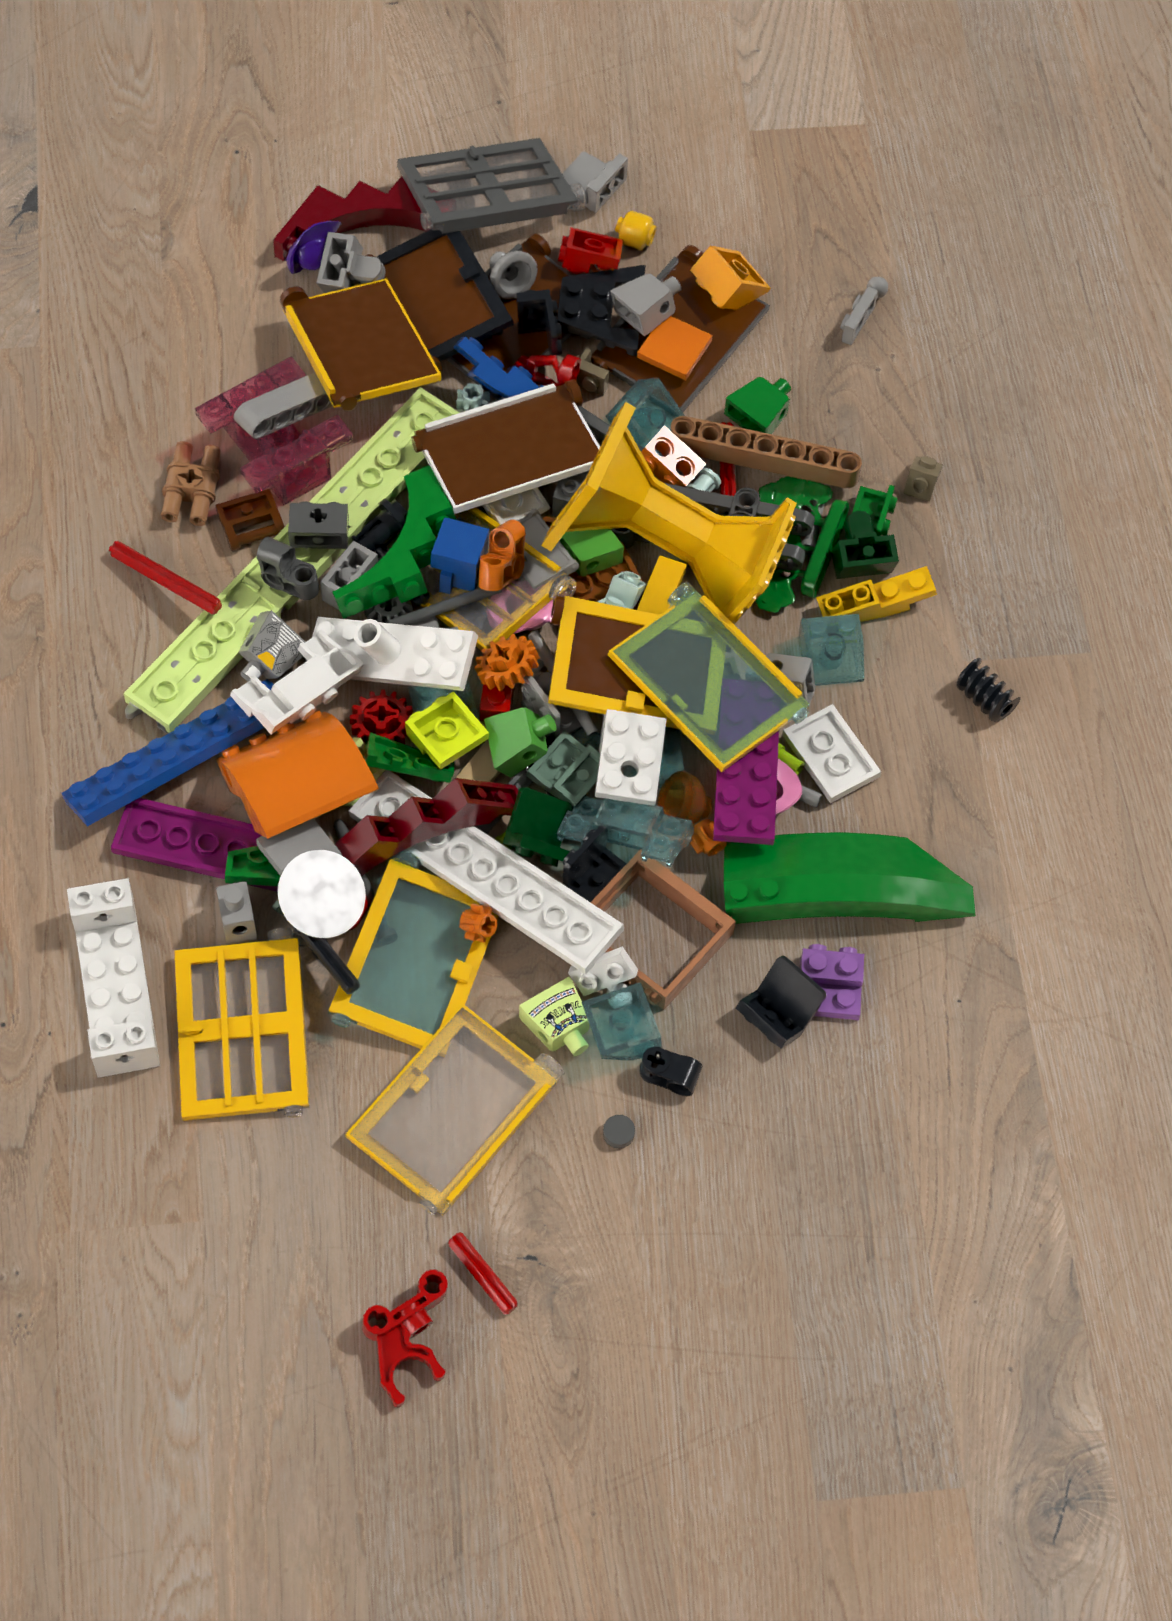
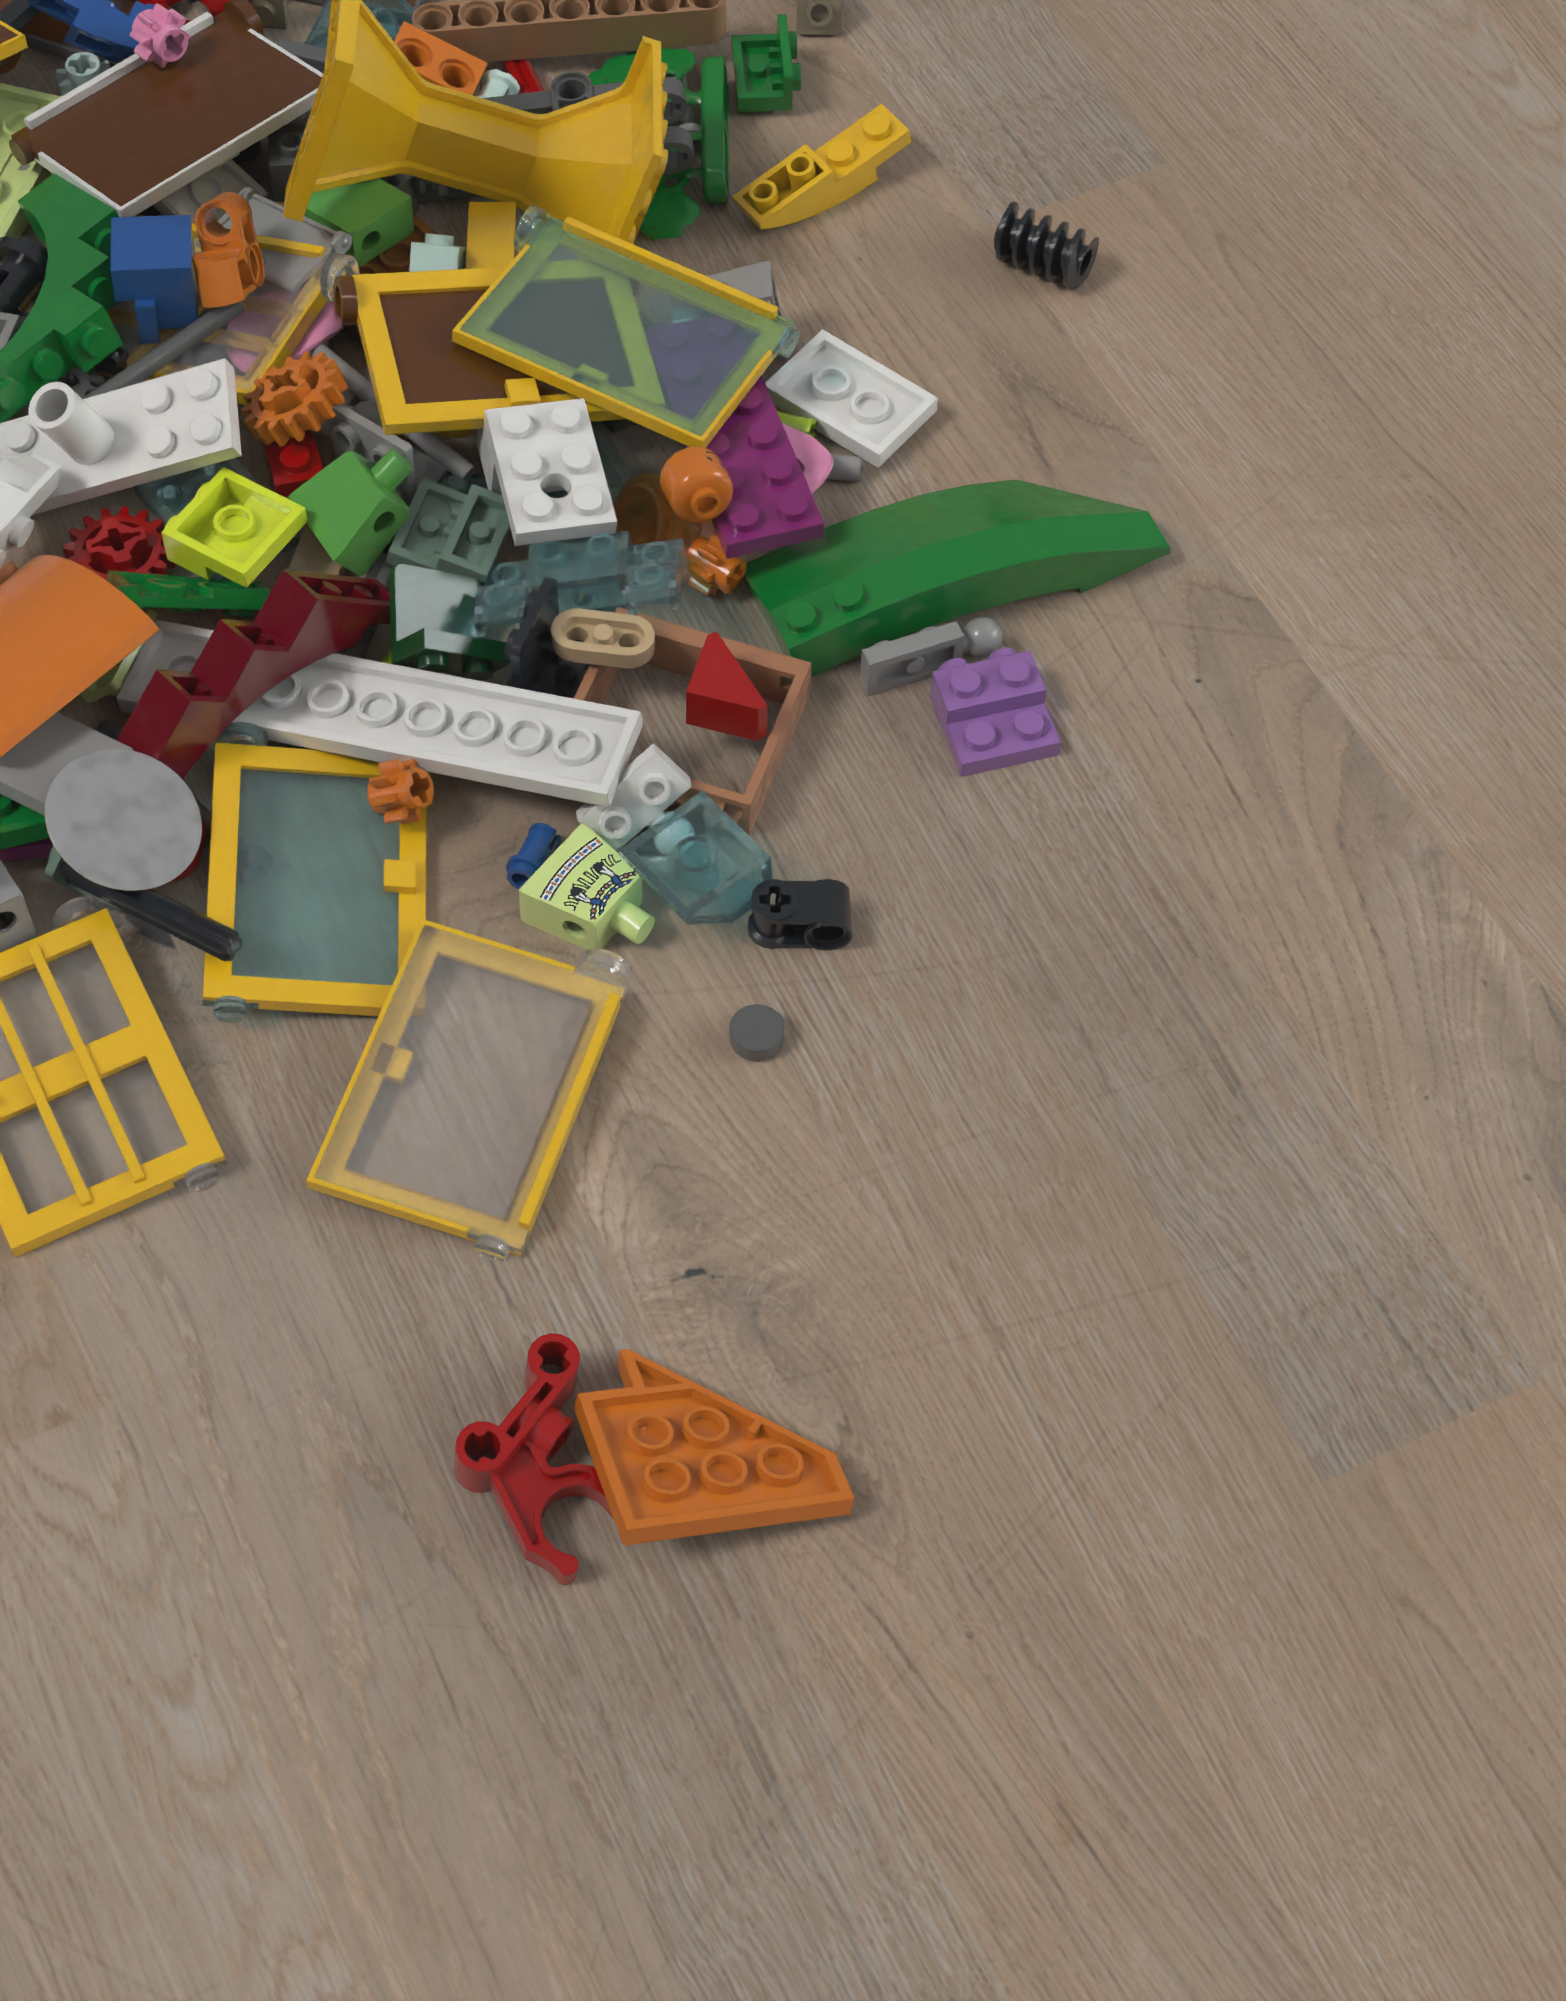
camera: 20 degrees left, 5 degrees down
(483, 1273) = (626, 1320): red axle -> none
(487, 1368) = (698, 1463): none -> orange wing
(518, 396) = (160, 35): none -> bright pink gear
(538, 983) = (532, 854): none -> blue pin
(624, 868) = (604, 638): none -> tan plate
(674, 927) = (723, 695): none -> red slope
(709, 793) = (695, 481): none -> orange head
(783, 1002) = (938, 754): black bracket -> none
(807, 933) = (918, 655): none -> light grey plate
(835, 648) = (801, 251): clear light blue slope -> none
(863, 550) = (776, 112): dark green brick -> none

